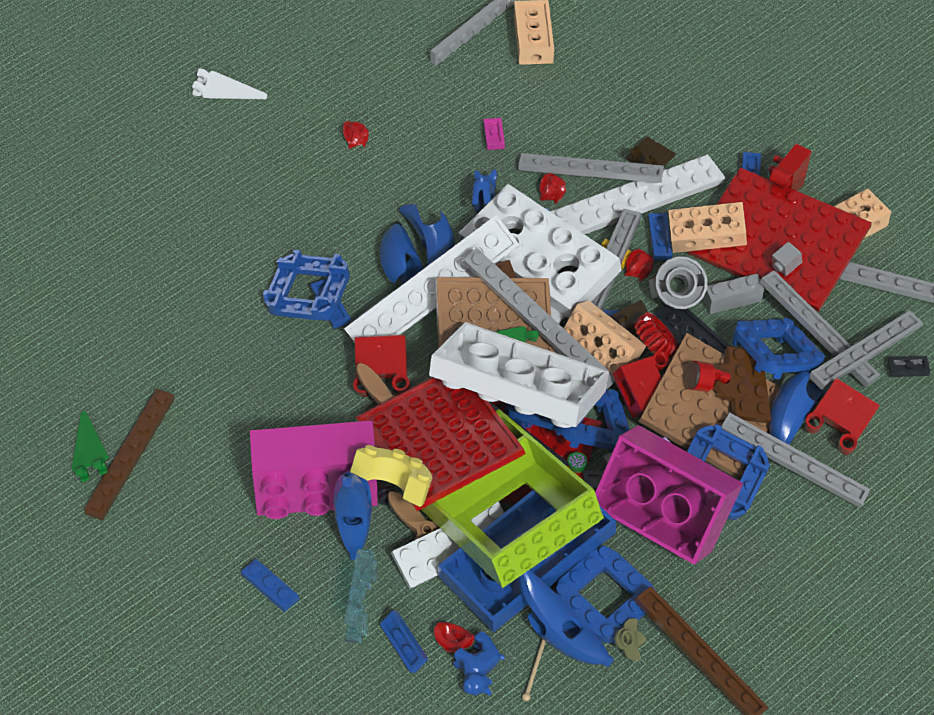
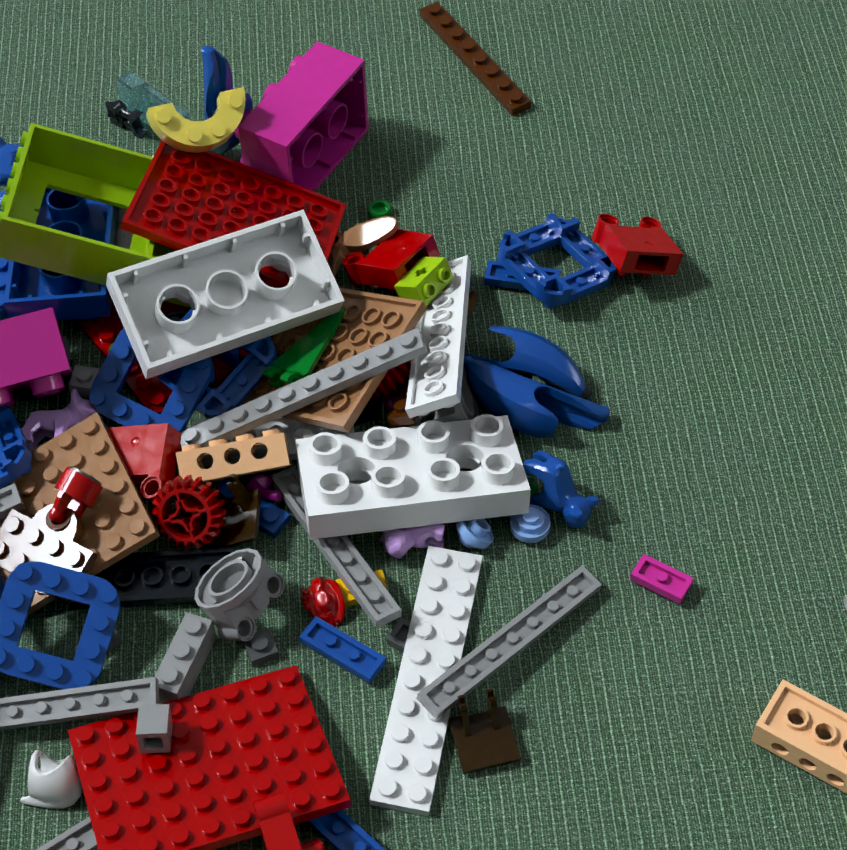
camera: 130 degrees right, 0 degrees up
(88, 450) = (494, 26): green flag -> none
(269, 243) = (637, 249): none -> red piece
(270, 585) = (253, 78): blue plate -> none
(331, 415) = (379, 208): none -> green tile
(355, 134) = (775, 436): red hat -> none
(373, 616) = (122, 117): none -> black piece
(401, 319) = (425, 279): none -> lime brick
(404, 641) = (90, 131): blue plate -> none
(552, 188) = (521, 587): red hat -> none
(592, 478) = (91, 358): dark grey plate -> none
(707, 227) = (288, 683): light nougat brick -> none
(845, 302) = (54, 784): none -> white piece

